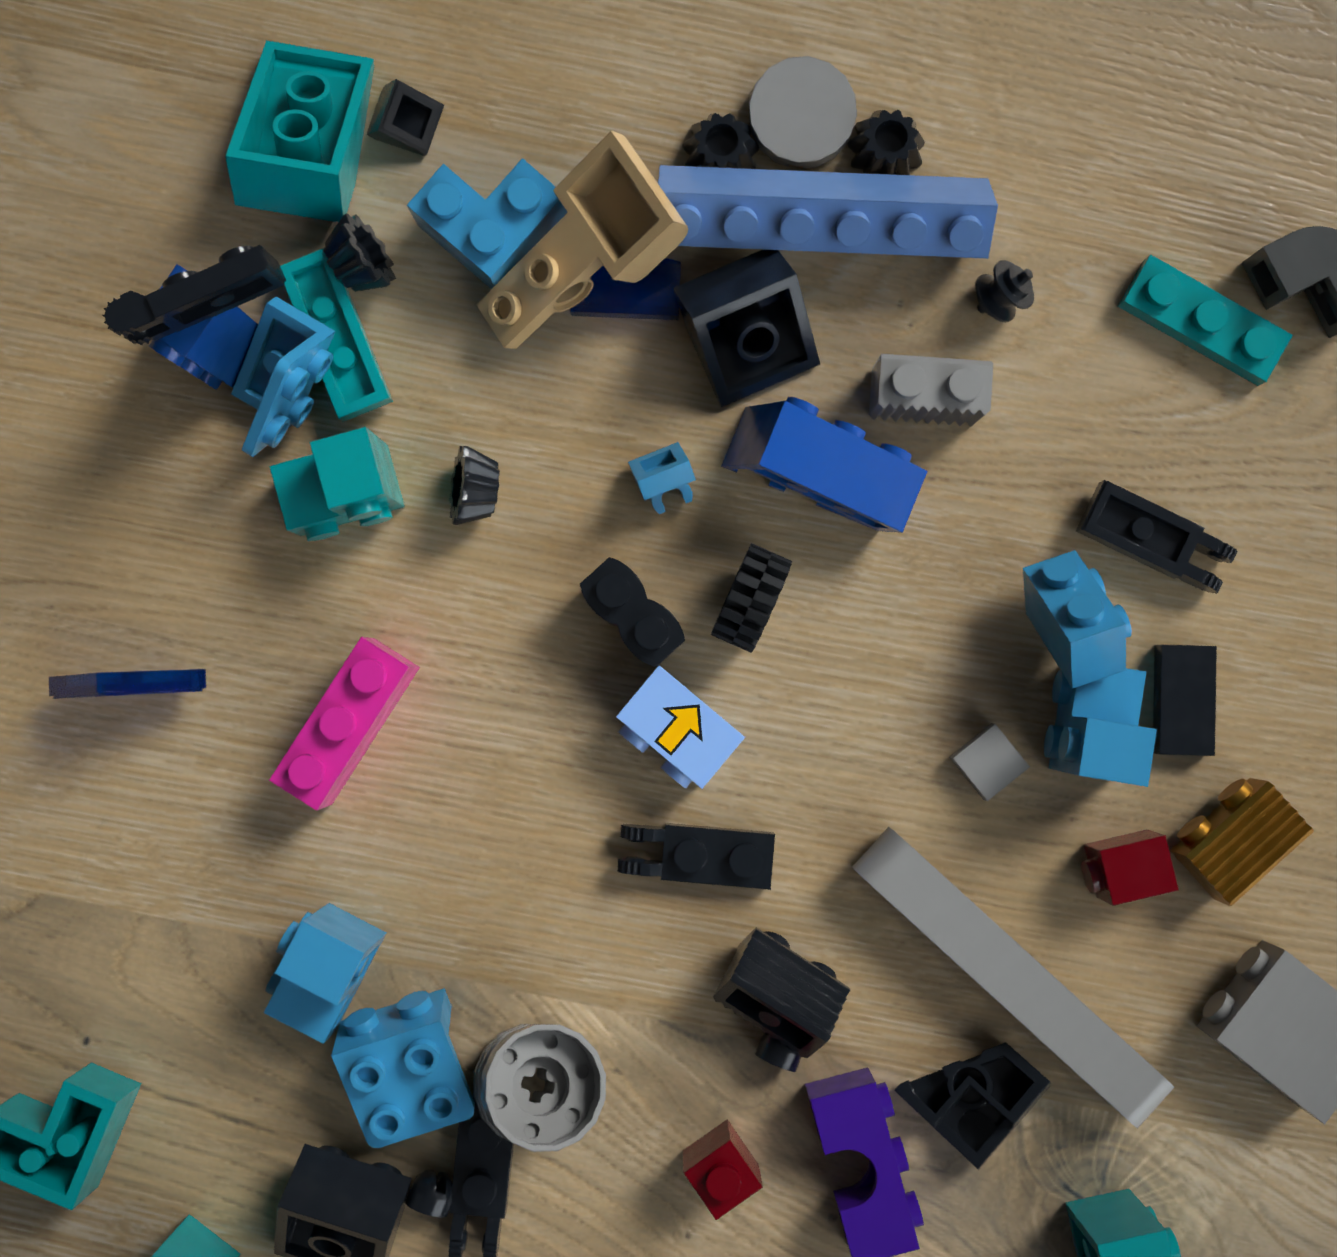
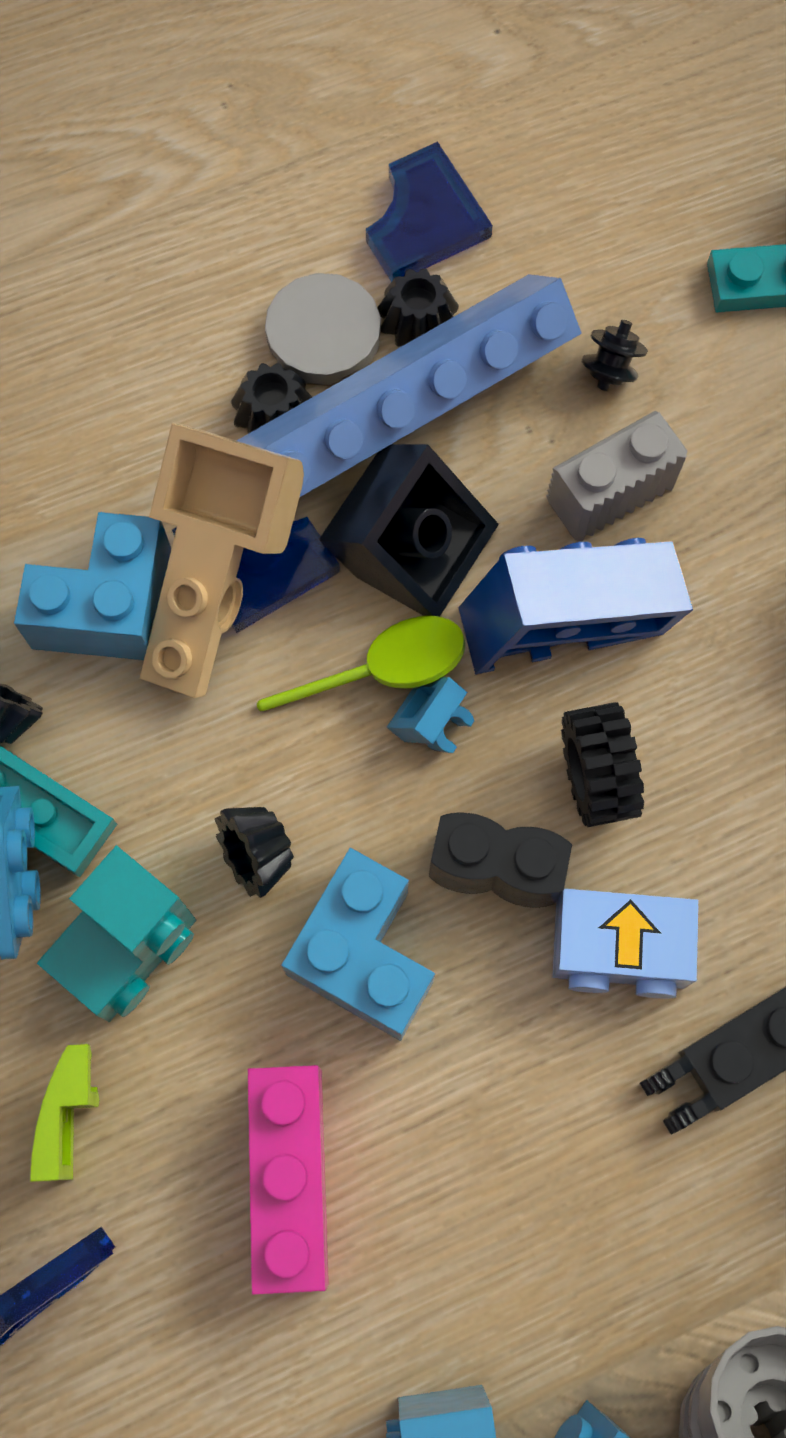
camera: 35 degrees left, 15 degrees down
(215, 586) = (54, 1130): none -> lime slope
(481, 604) = (343, 952): none -> dark azure brick
(674, 420) = (400, 657): none -> lime piece
(953, 71) = (429, 214): none -> clear blue tile

